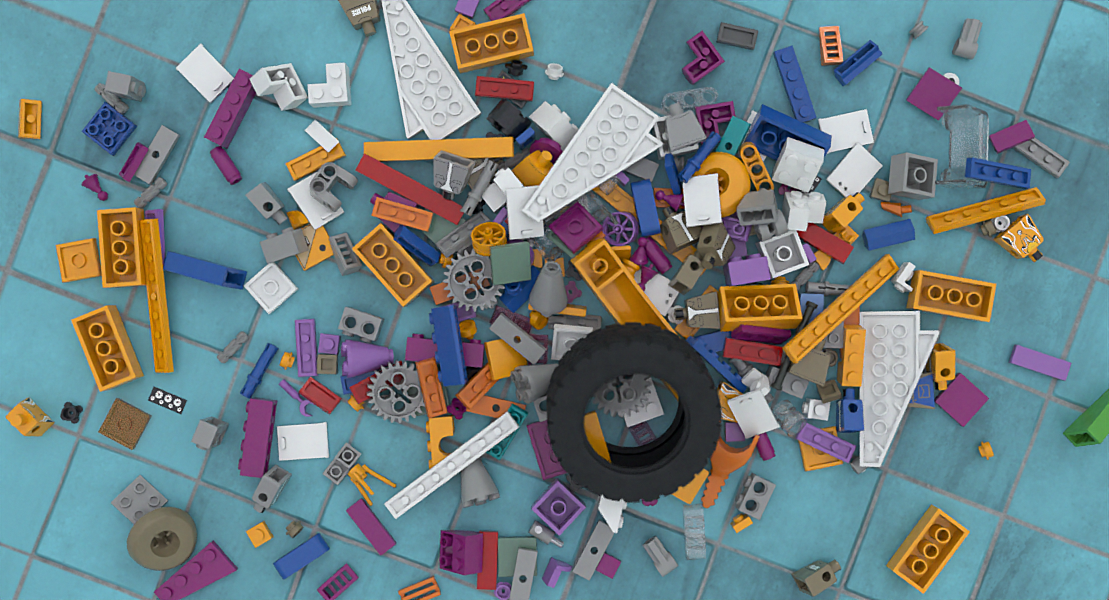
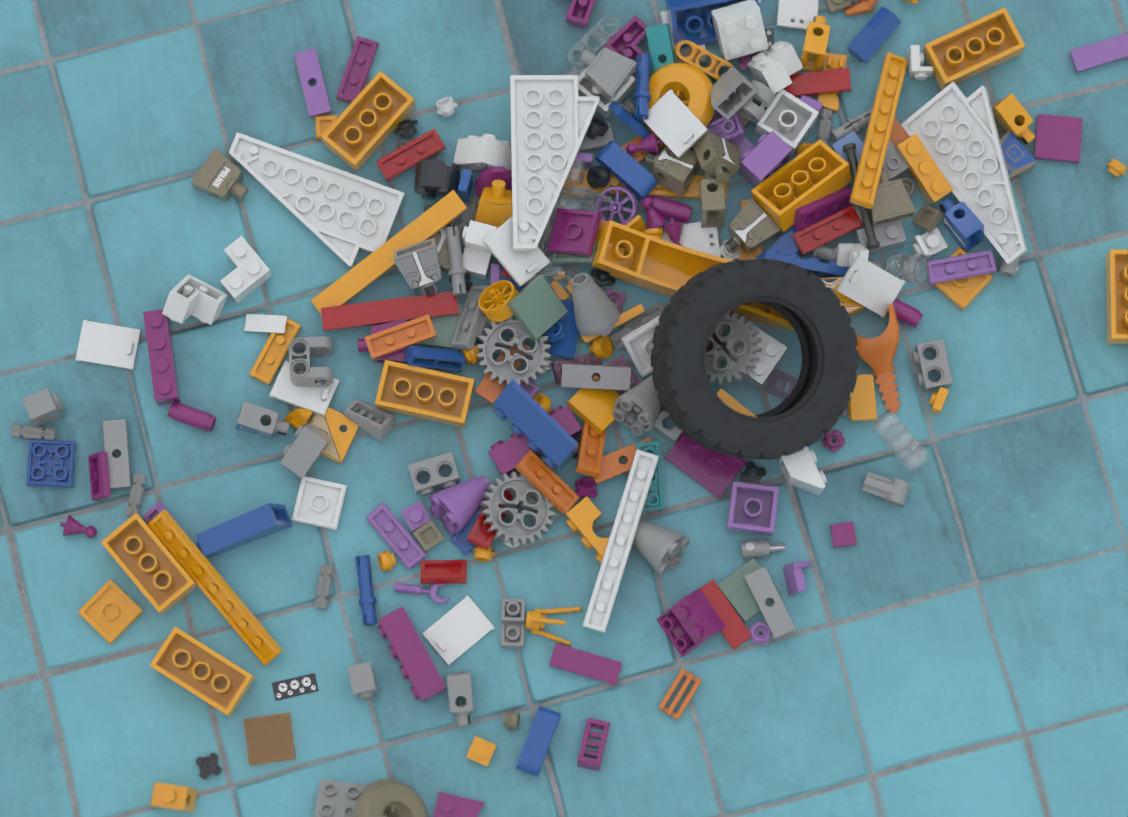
camera: 35 degrees left, 10 degrees down
(589, 560) = (817, 515): light grey tile -> none
(622, 198) = (598, 177): none -> black tile
(647, 163) = (597, 128): none -> black tile
(733, 432) = (868, 321): medium lavender tile -> none
(816, 577) = (1047, 399): dark tan torso -> none

